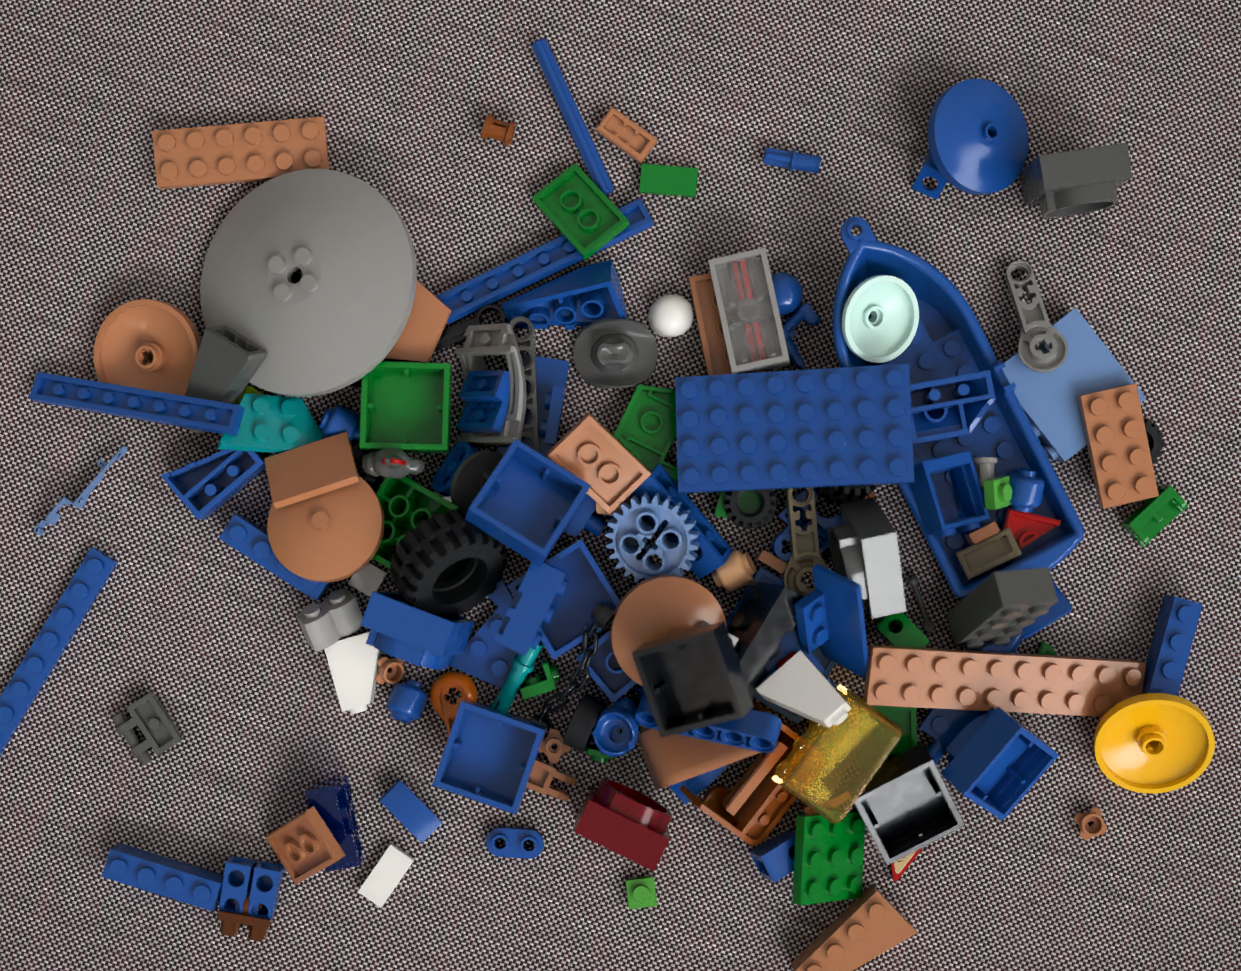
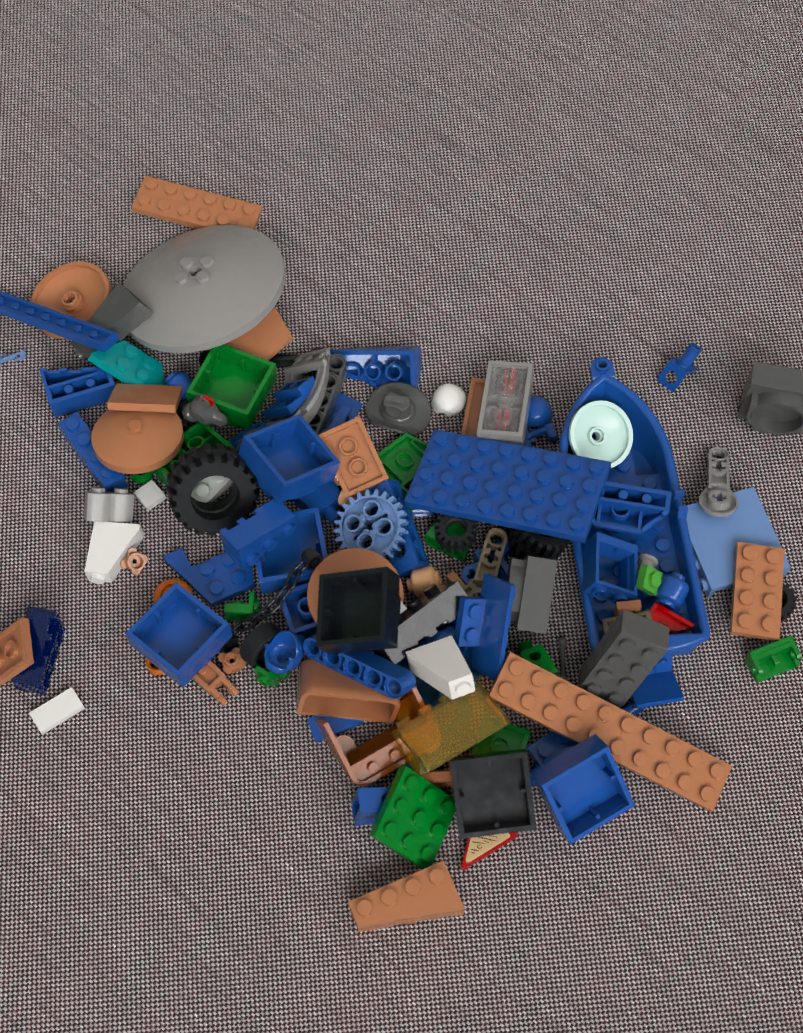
camera: 20 degrees right, 25 degrees down
(407, 701) = (136, 586): blue head -> none
(410, 811) = (99, 667): blue slope -> none
(414, 633) = (167, 526): blue container -> none
(498, 130) = (376, 249): dark orange bush -> none
(515, 841) = (167, 723): blue plate -> none
(521, 667) = (235, 587): teal pin -> none
(531, 267) = (374, 335): blue plate -> none
(572, 116) = (431, 260): blue axle -> none
(580, 211) = (411, 311): green plate -> none
(625, 822) = (260, 724): dark red container -> none
(626, 135) = (464, 280): nougat plate -> none
(641, 892) = (250, 799): bright green plate -> none
(668, 180) = (482, 318): green tile -> none
(752, 778) = (374, 735): nougat tile -> none
(791, 160) = (575, 332): blue axle -> none
(978, 137) = (715, 355): blue dish -> none
(1096, 829) = (649, 877): nougat plate -> none
(1154, 743) = (719, 827): yellow dish -> none
(1171, 645) = (753, 767): blue brick -> none

